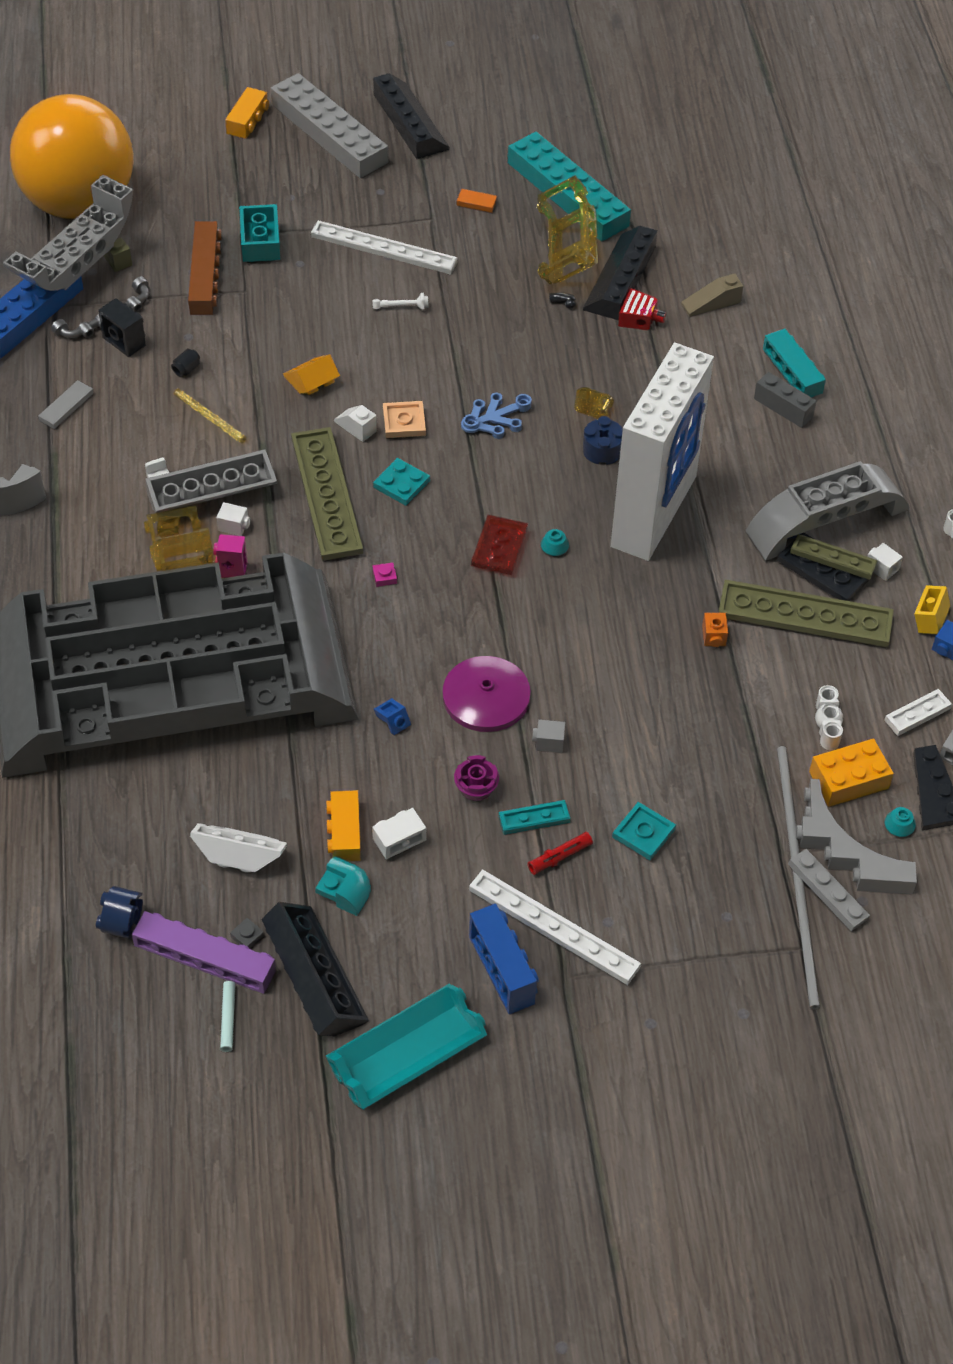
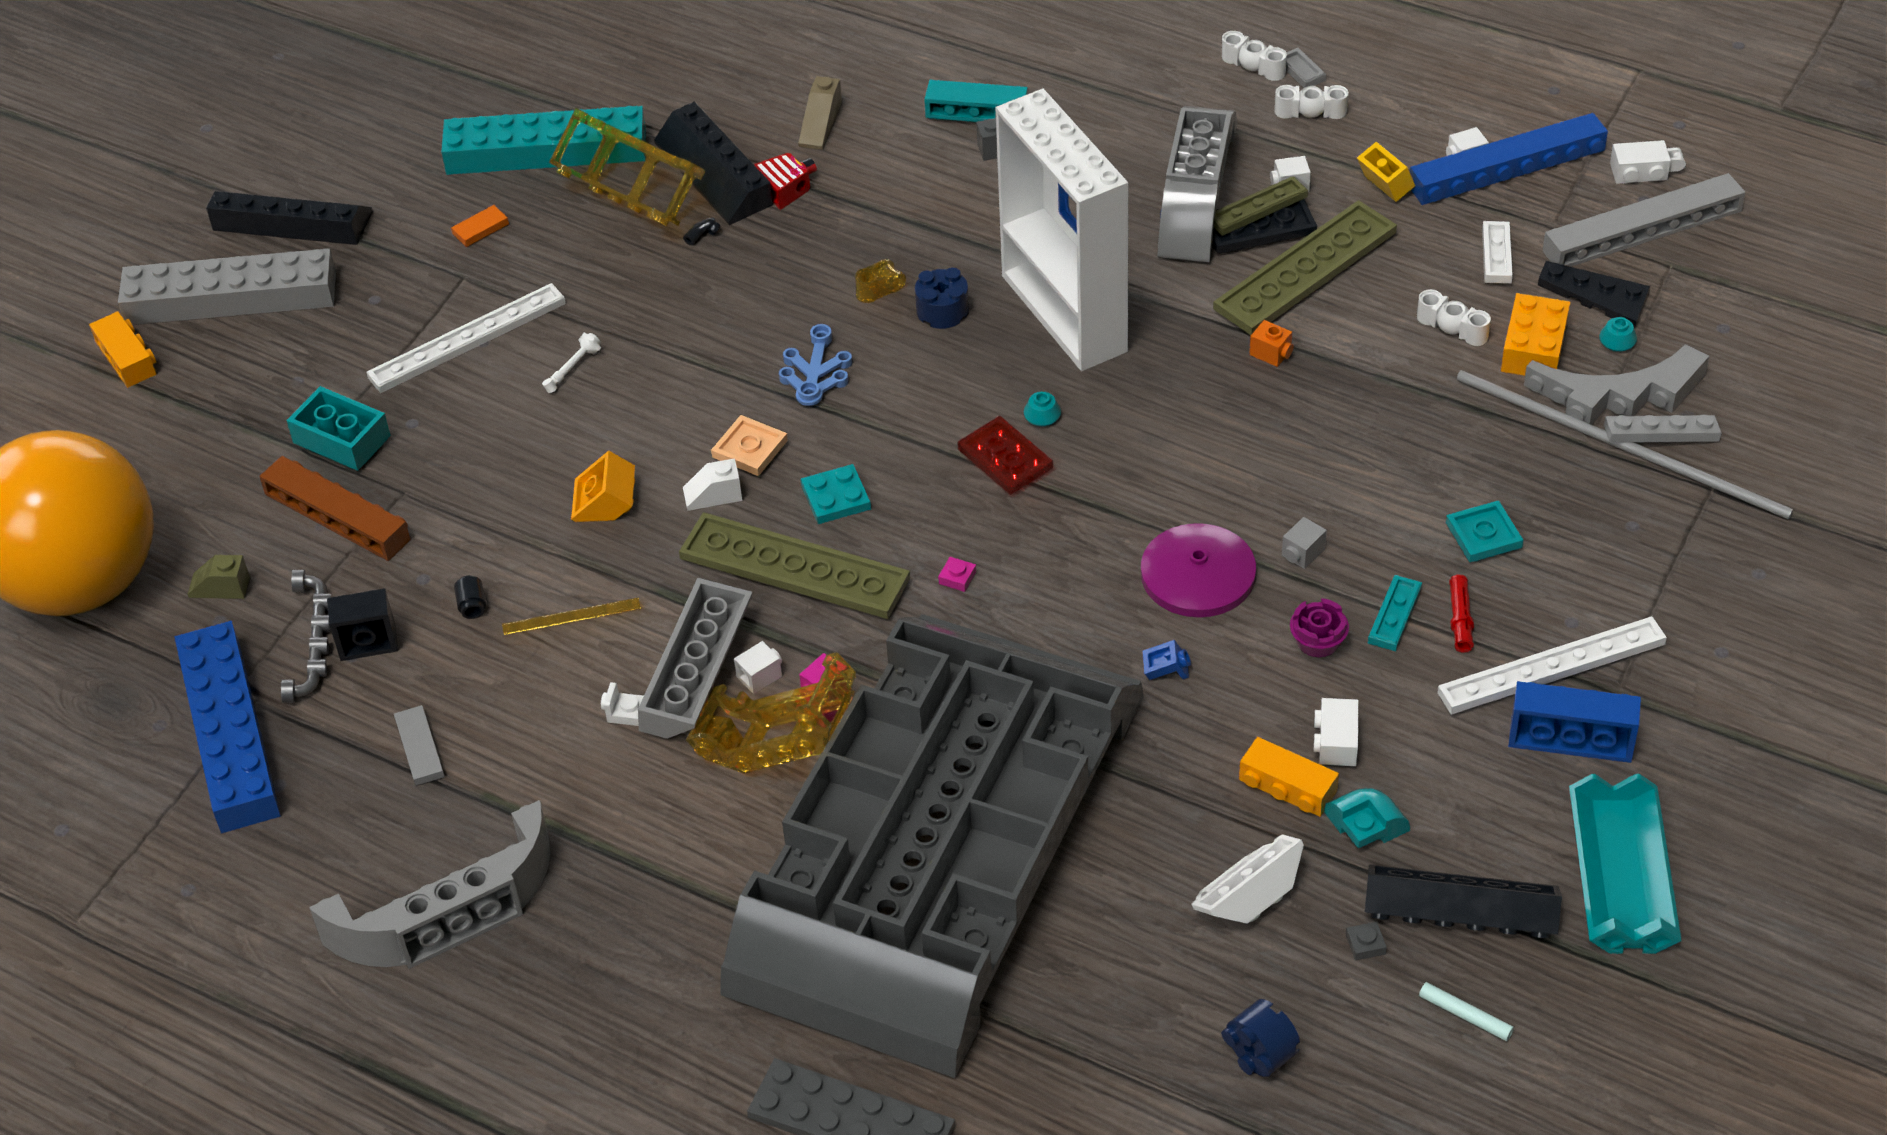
camera: 50 degrees left, 5 degrees down
(80, 242) = (197, 577): light grey slope -> none
(204, 951) = (1370, 987): medium lavender brick -> none

